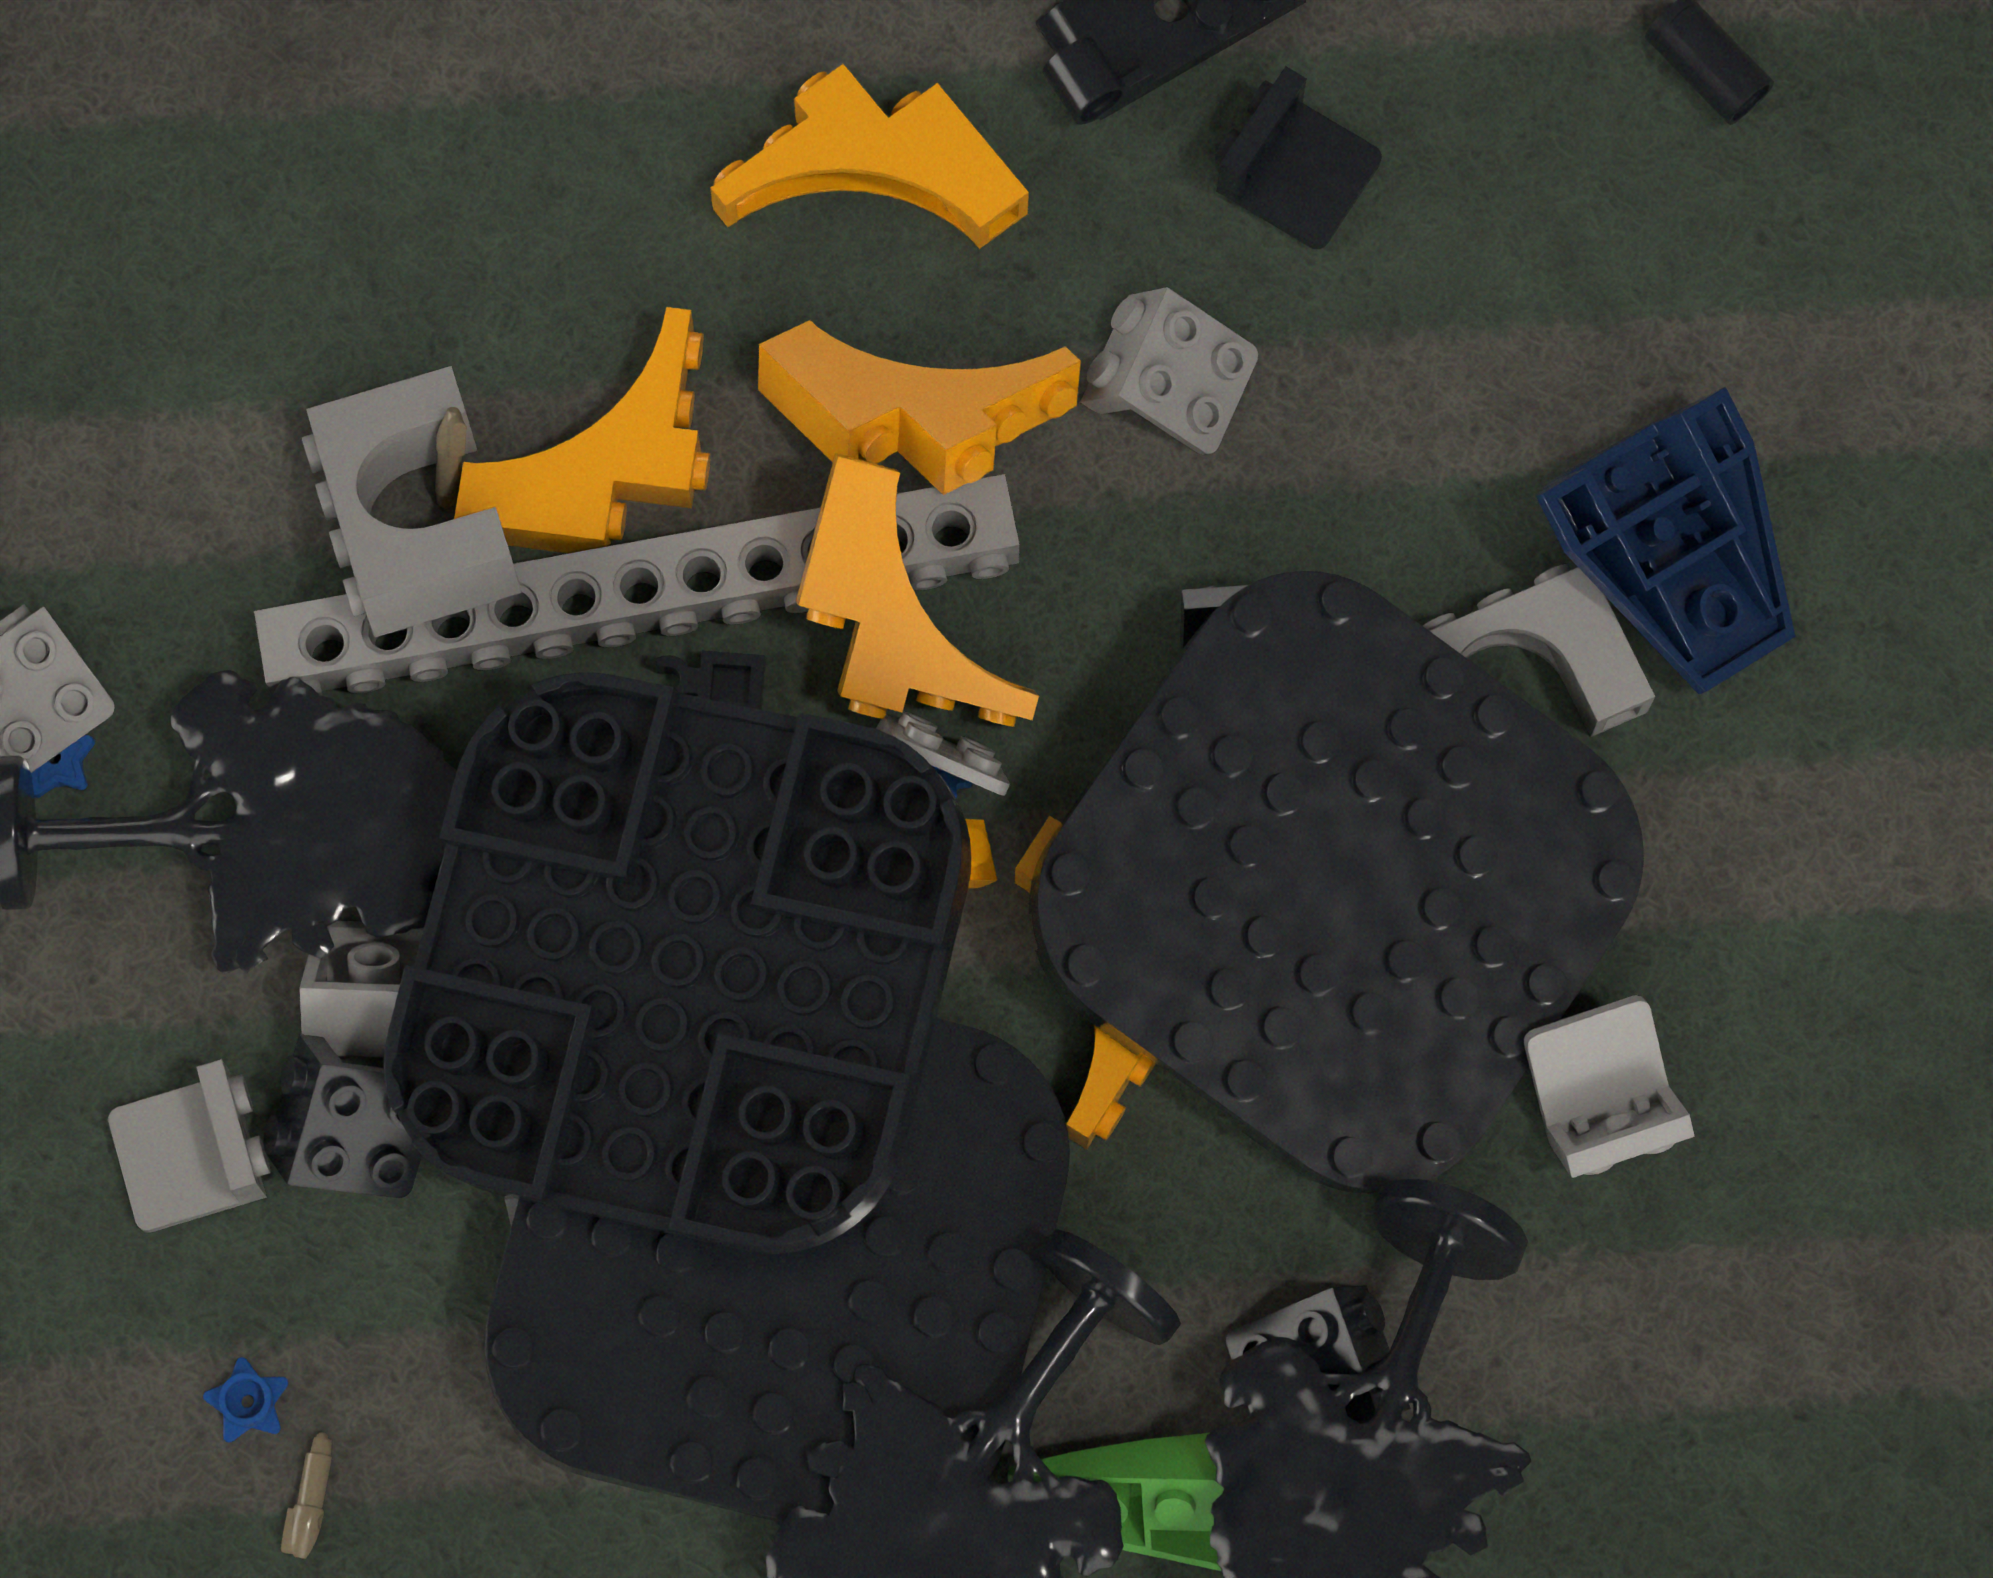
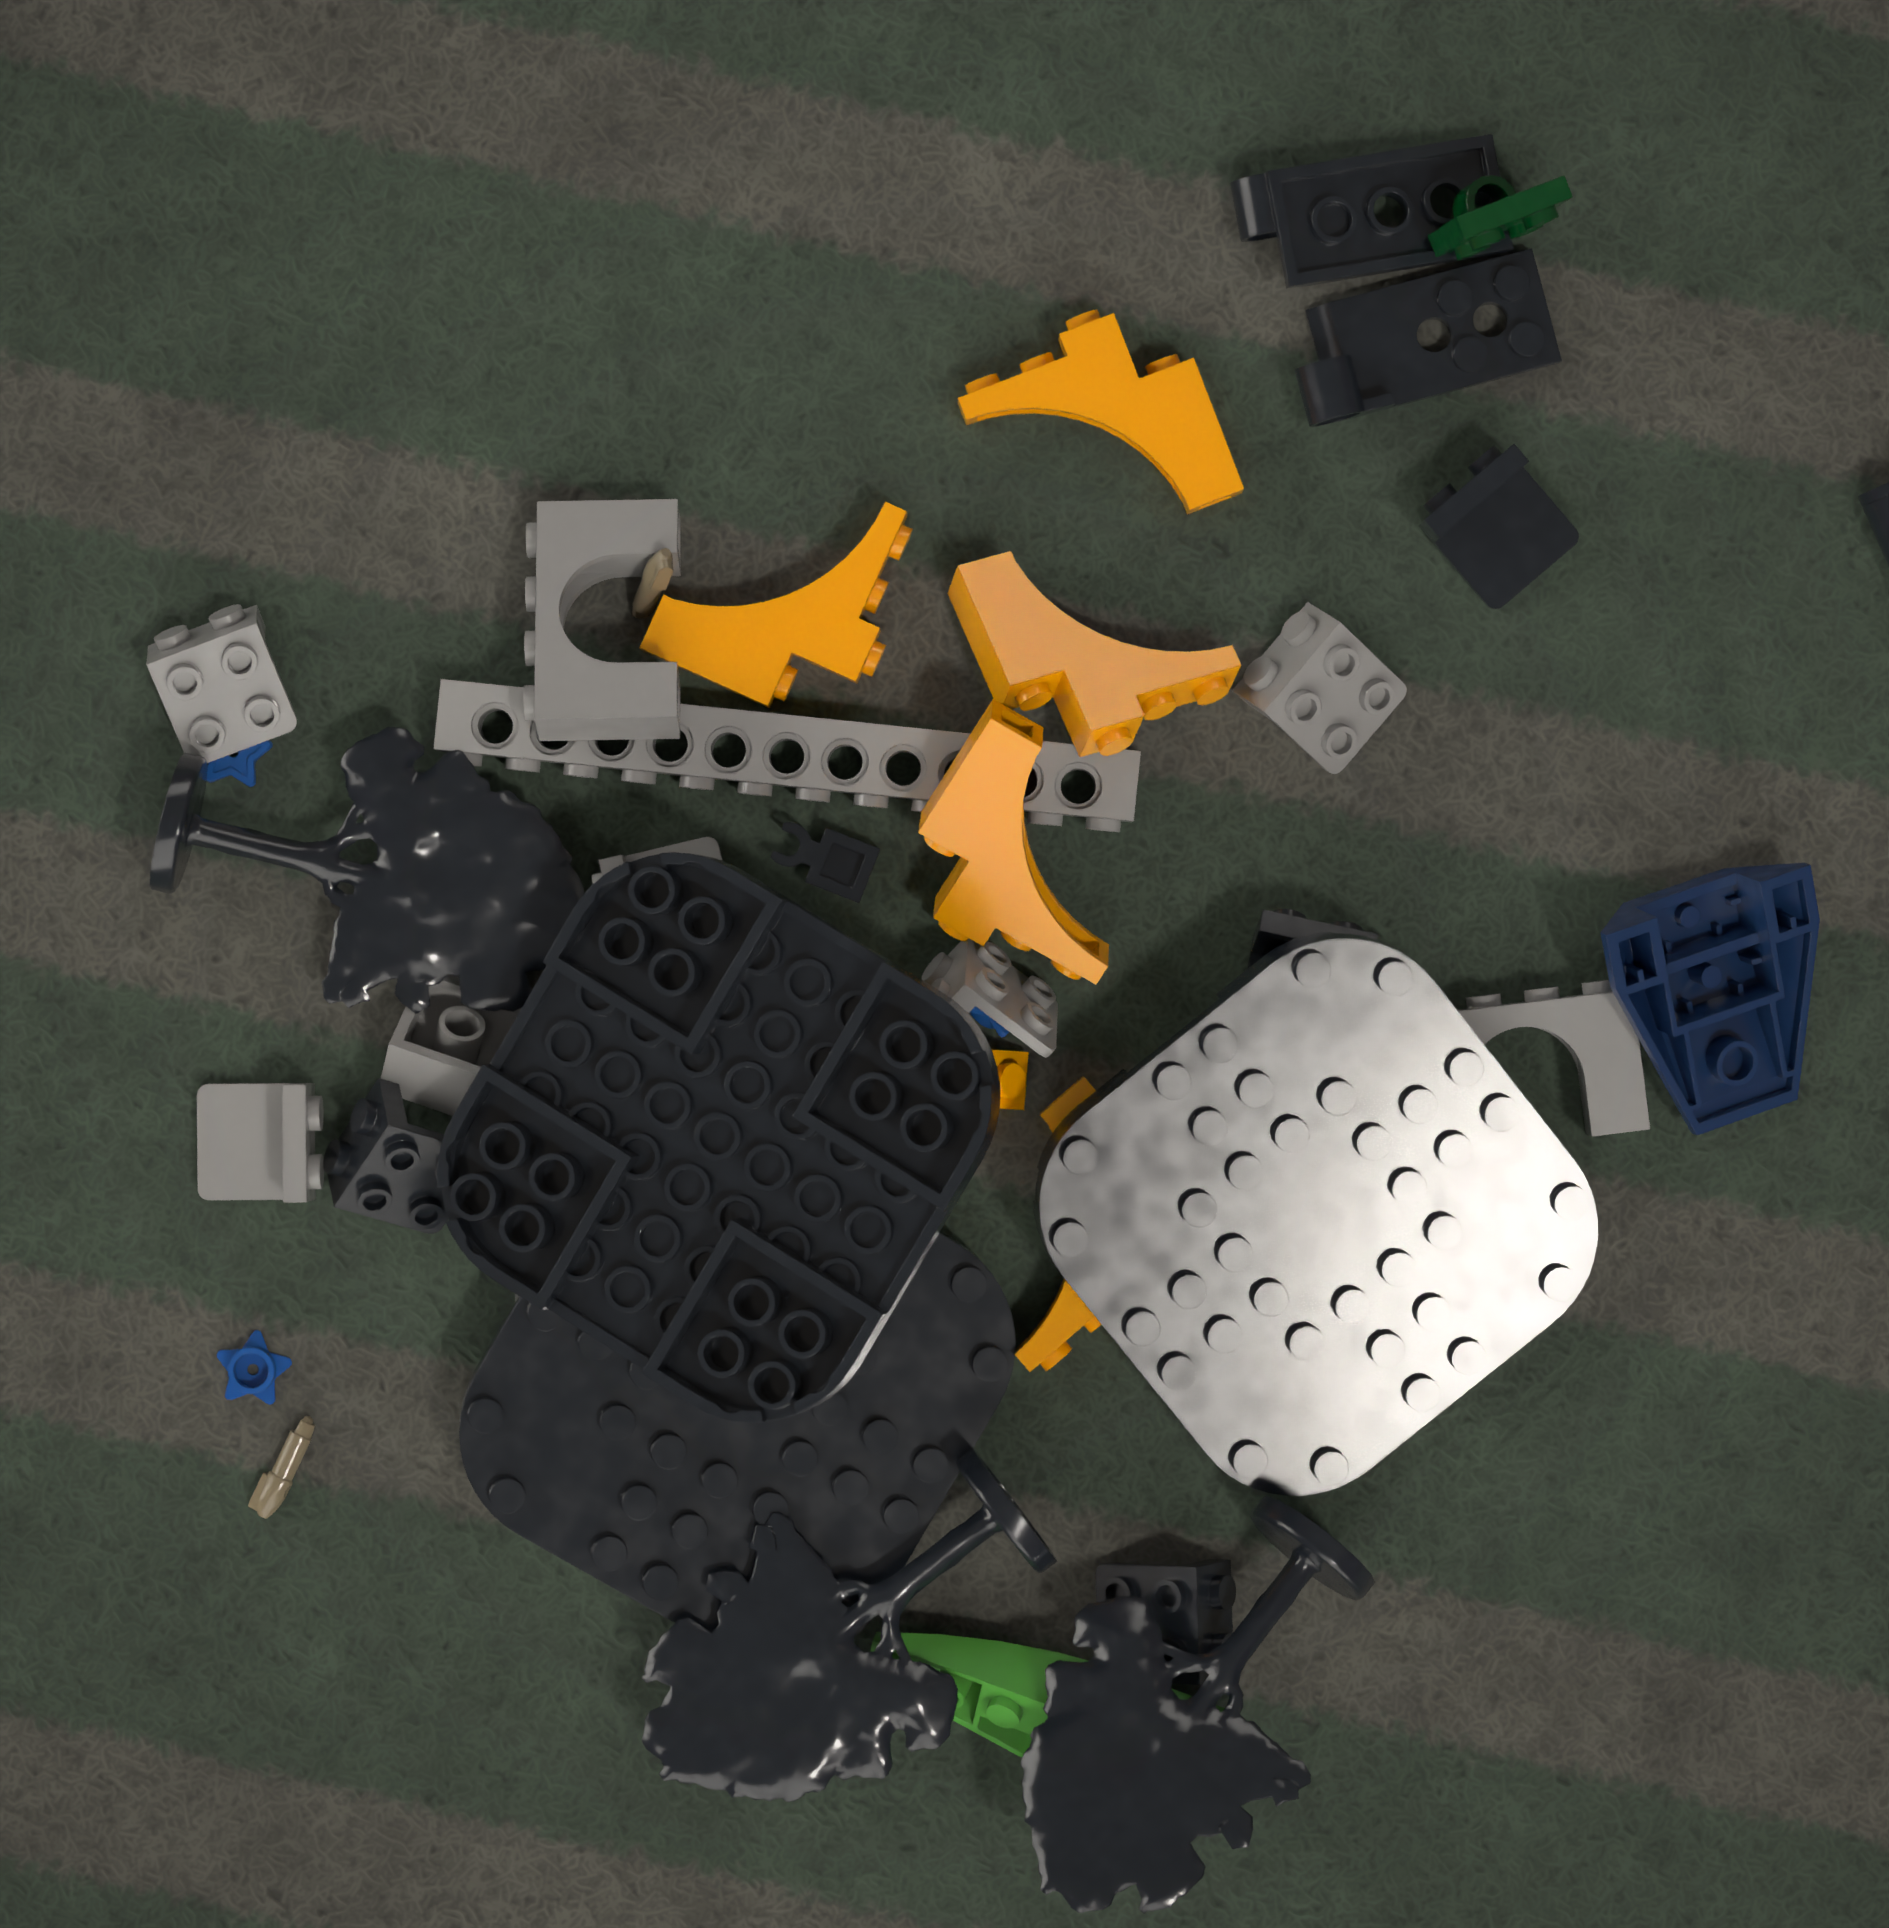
camera: 20 degrees right, 15 degrees up
(1604, 1087) = (1489, 1463): light grey bracket -> none

